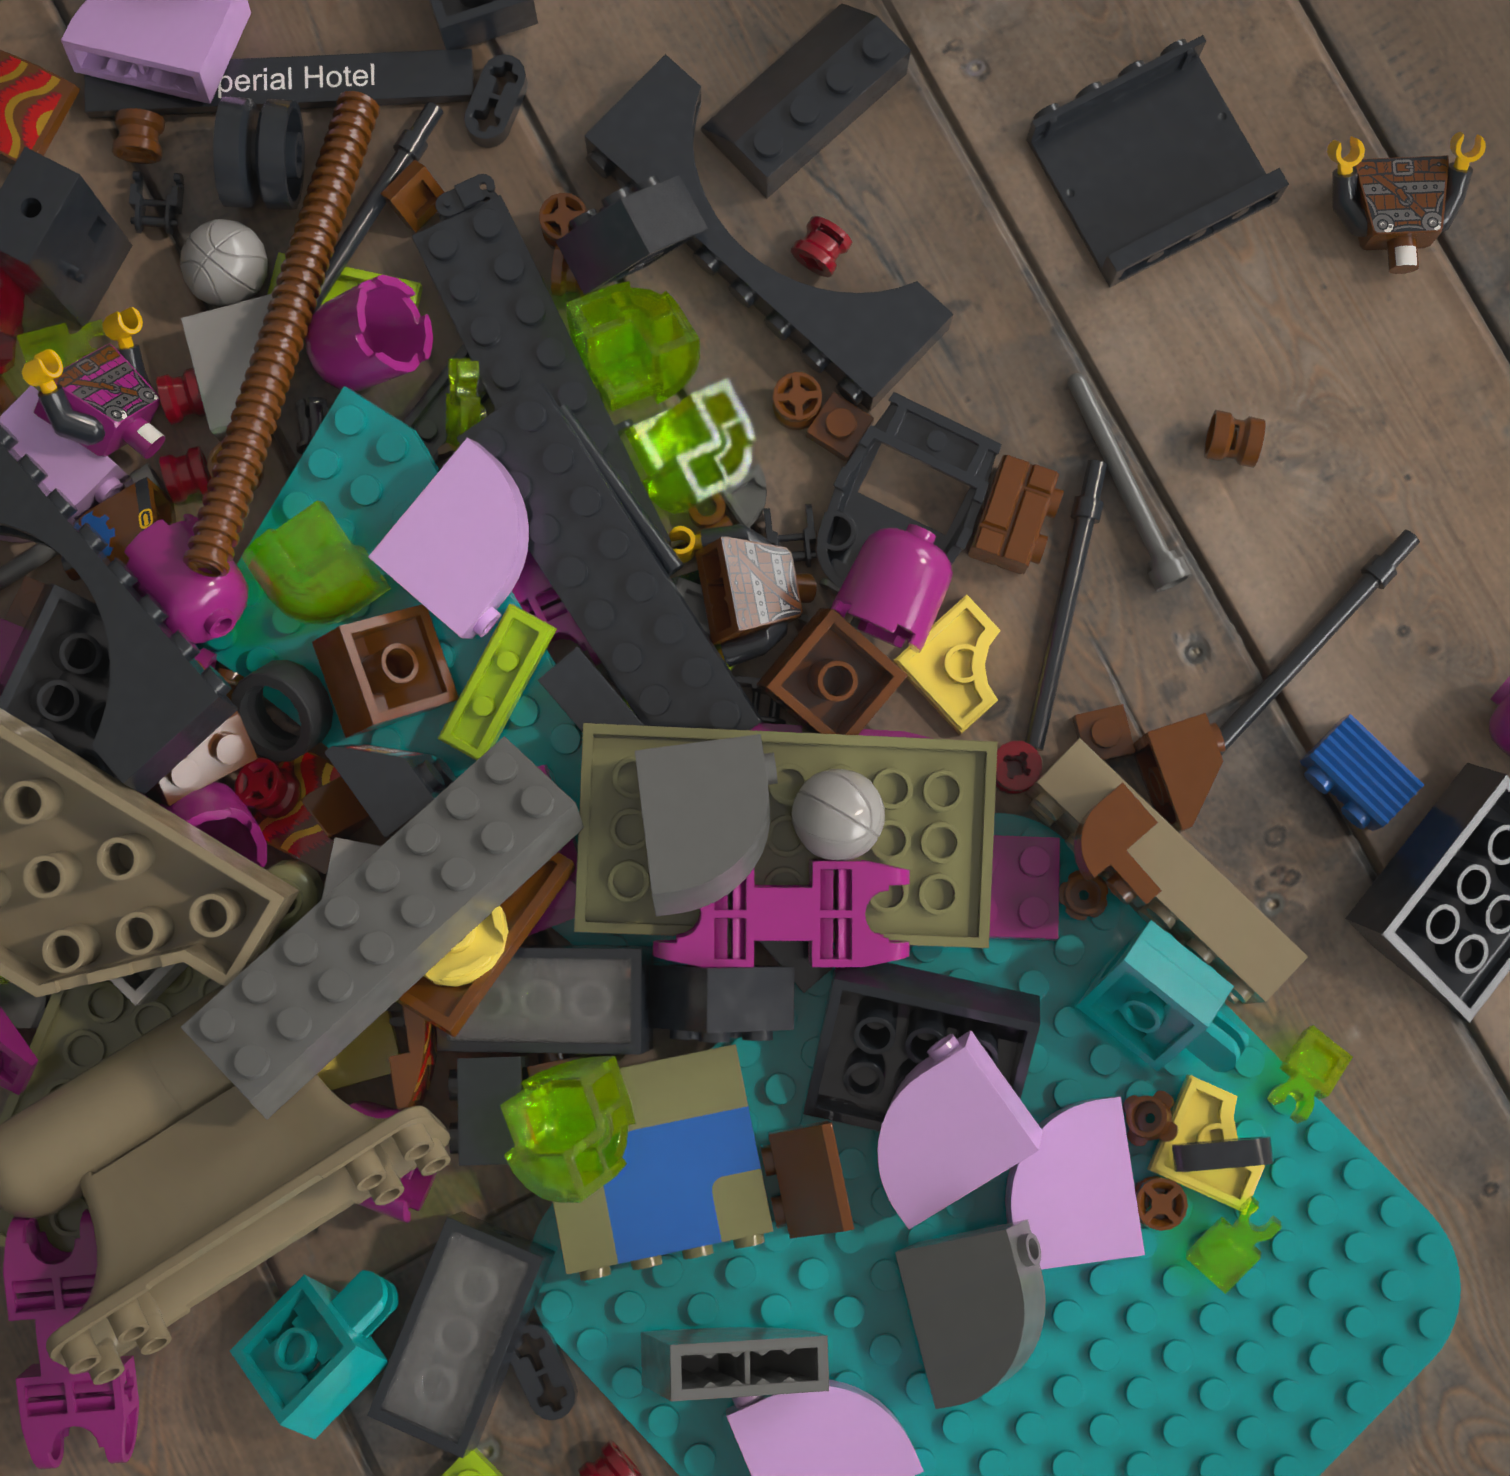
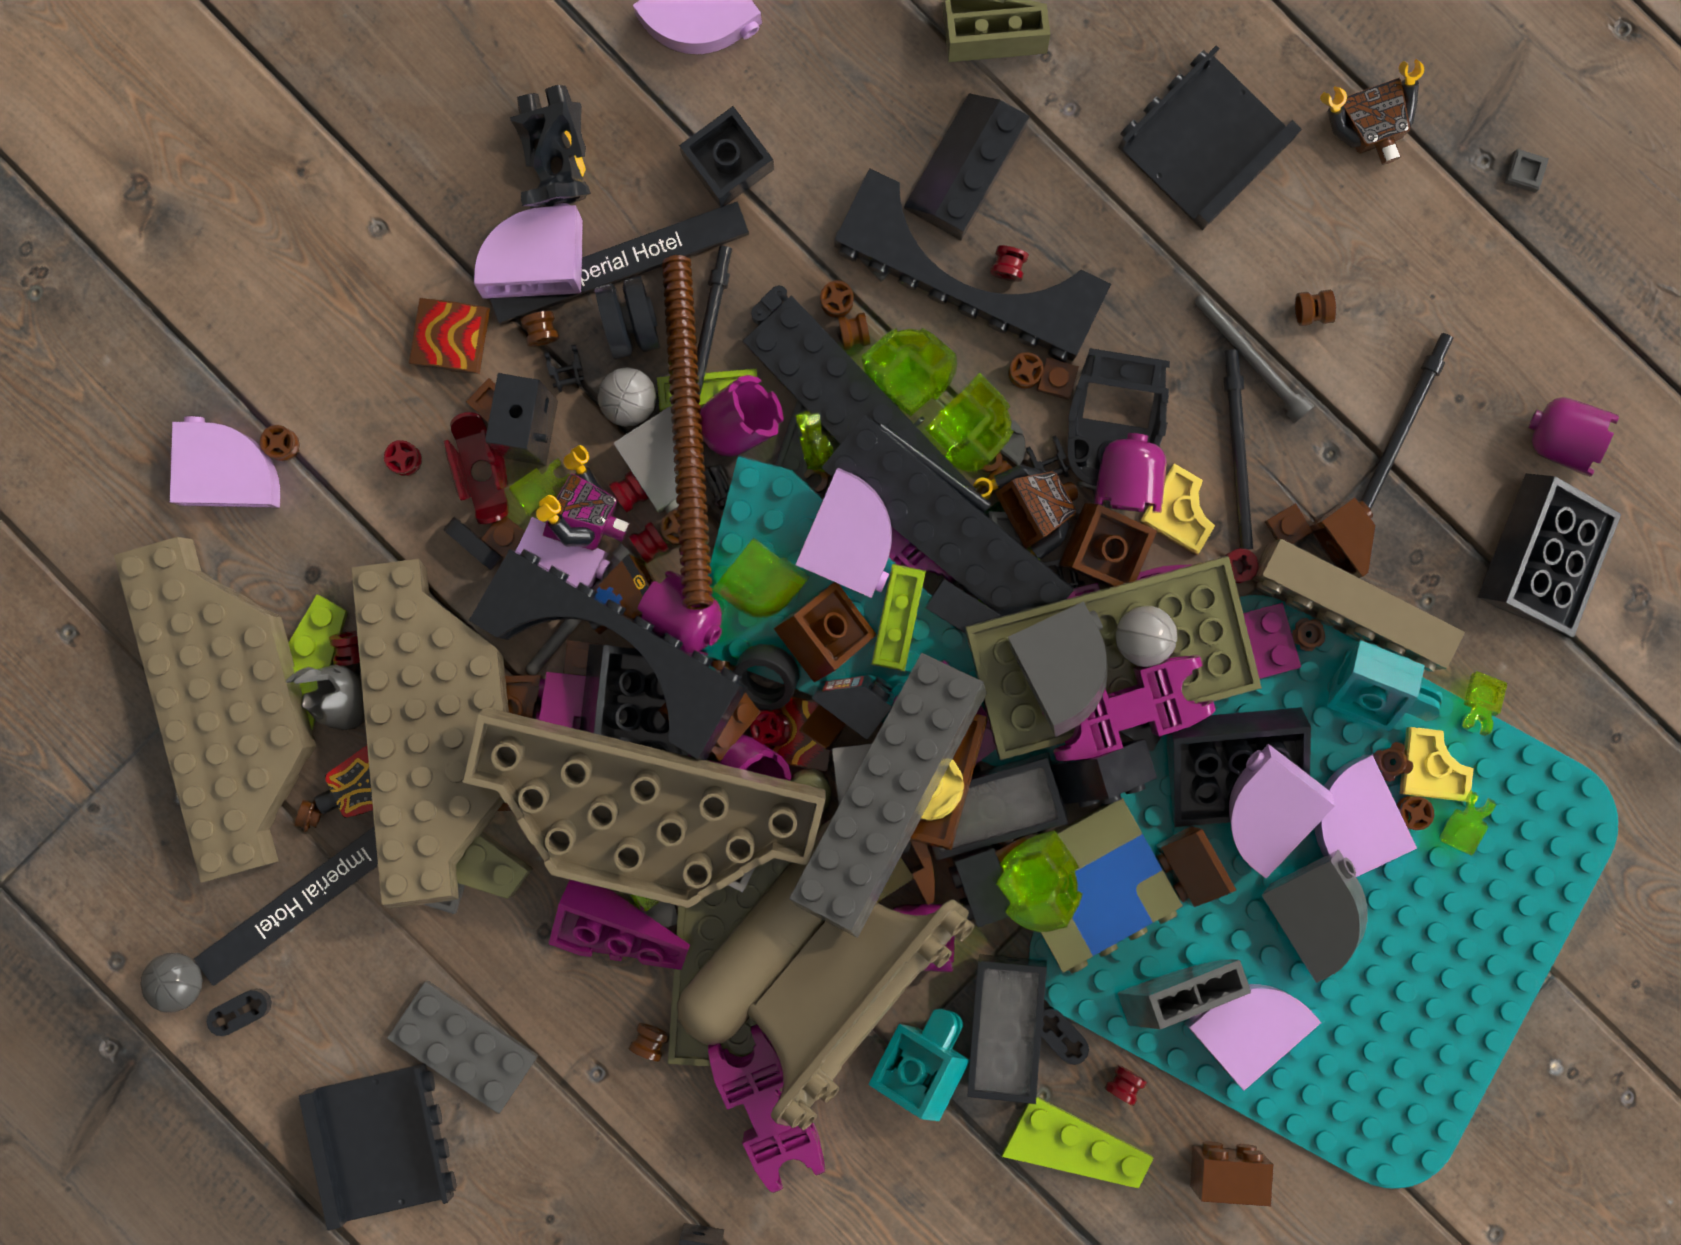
camera: 15 degrees left, 5 degrees up
(413, 195) = (734, 312): reddish brown plate -> none
(486, 97) = (756, 230): black beam -> none
(630, 231) = (888, 297): black brick -> none
(1015, 514) = (1190, 402): reddish brown brick -> none
(1103, 845) = (1318, 599): reddish brown brick -> none
(1222, 1154) = (1446, 770): black beam -> none
(1360, 774) = (1459, 501): blue brick -> none

